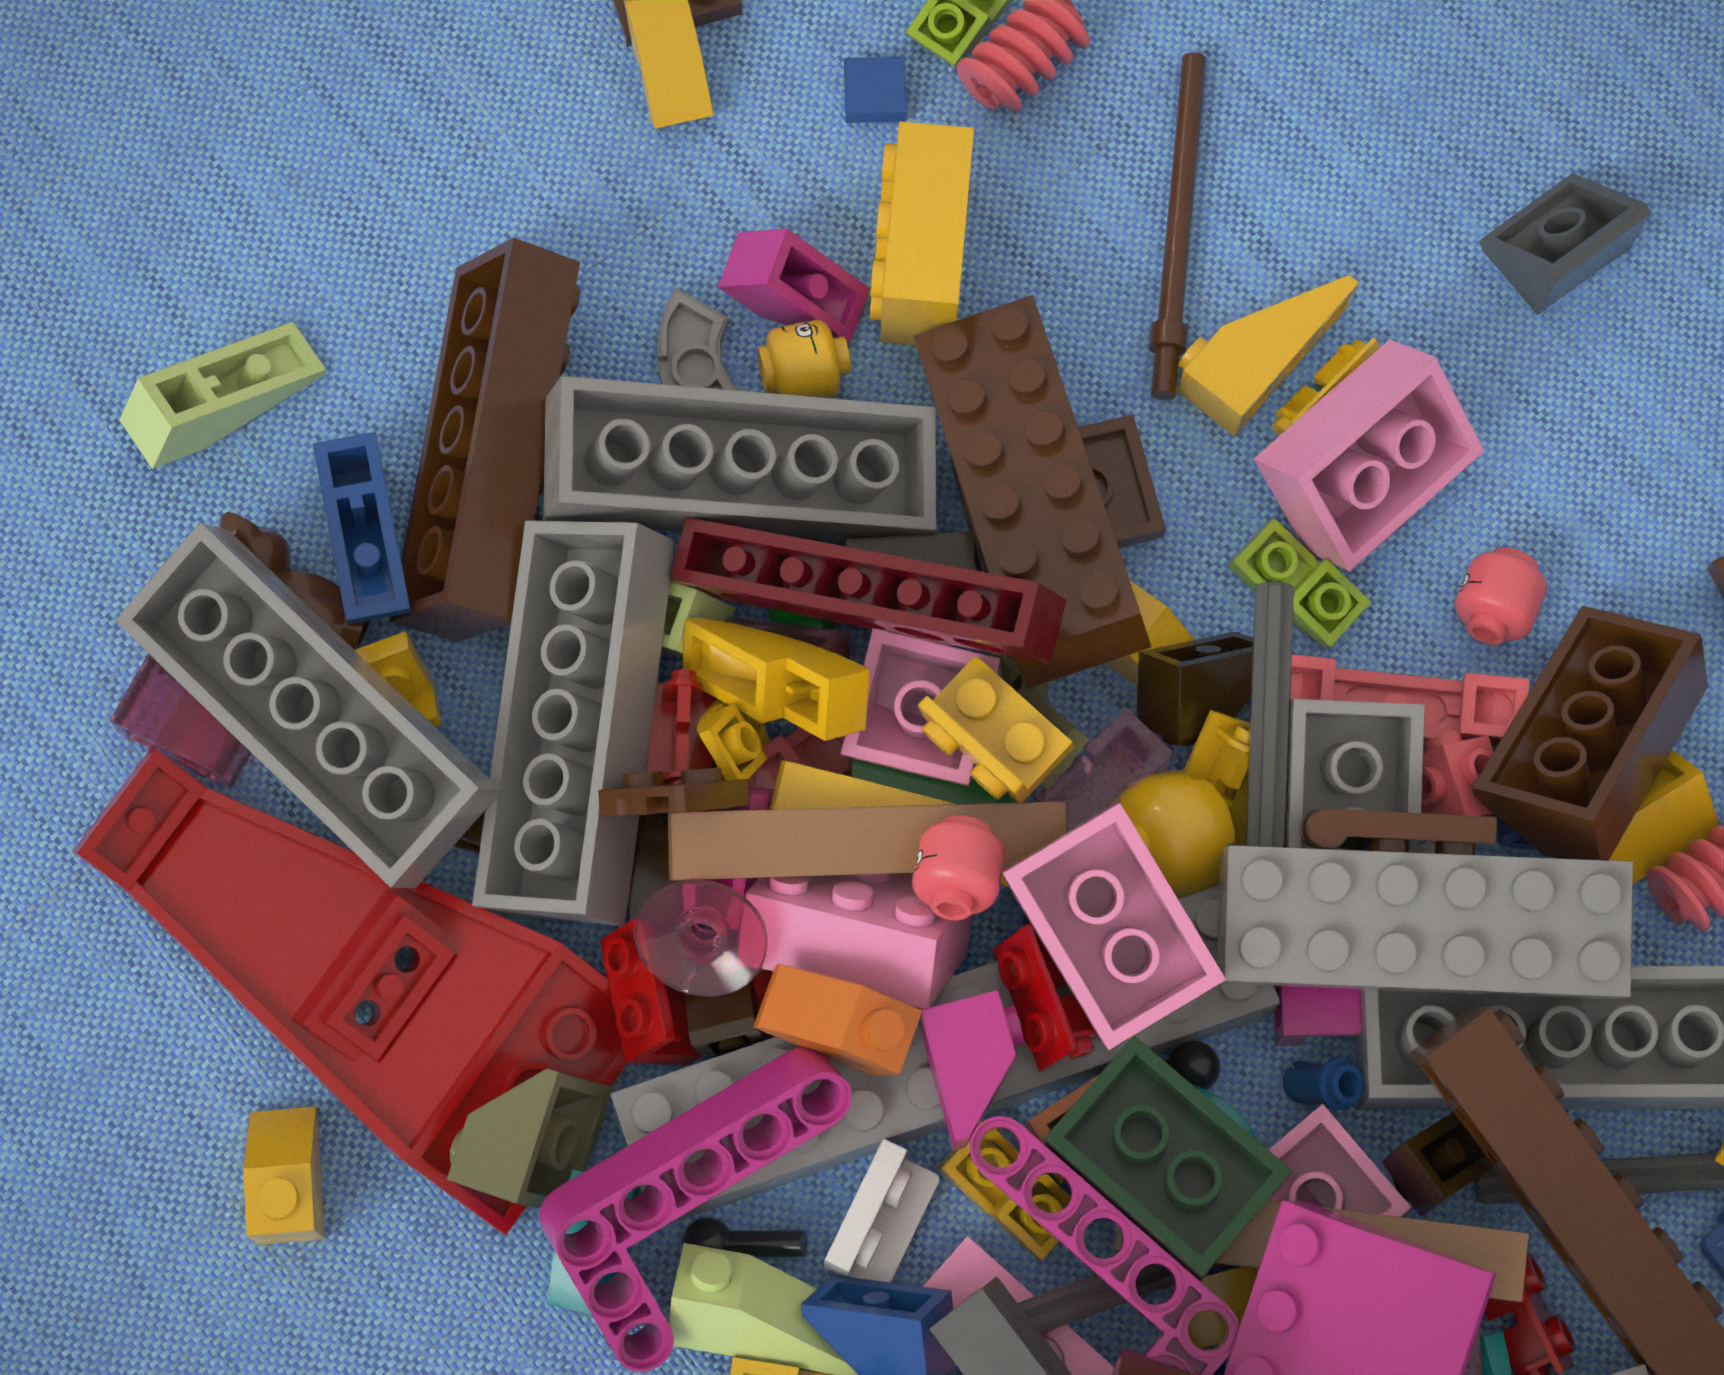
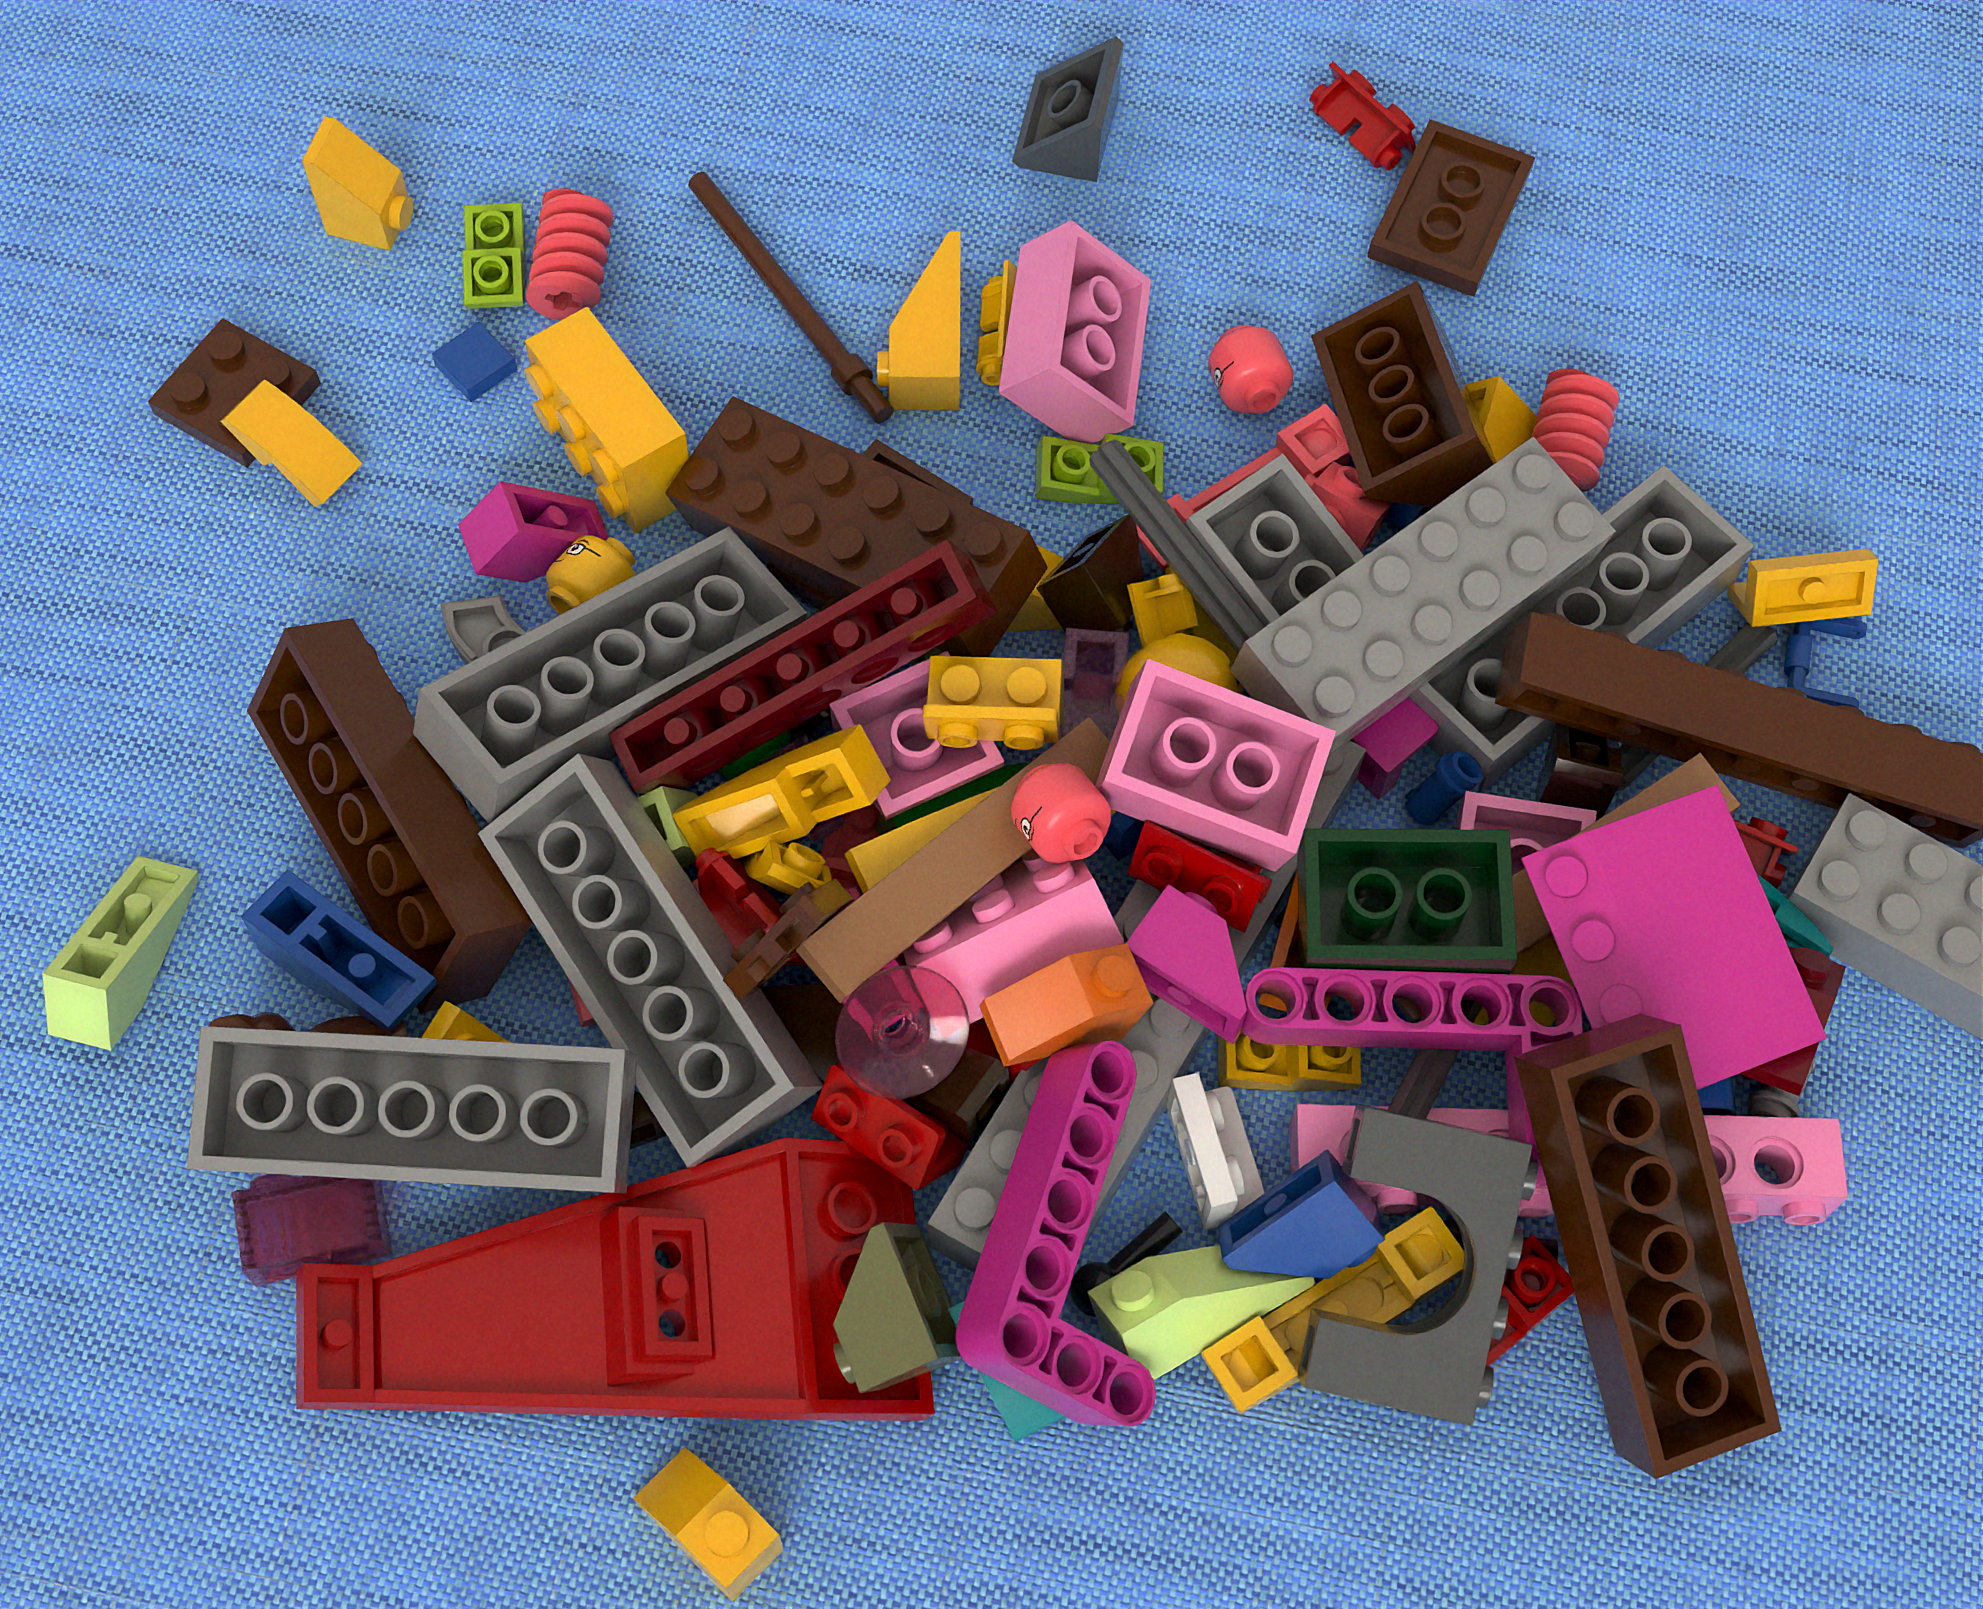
camera: 40 degrees left, 10 degrees down
(1394, 830) = (1344, 547): reddish brown plate -> none

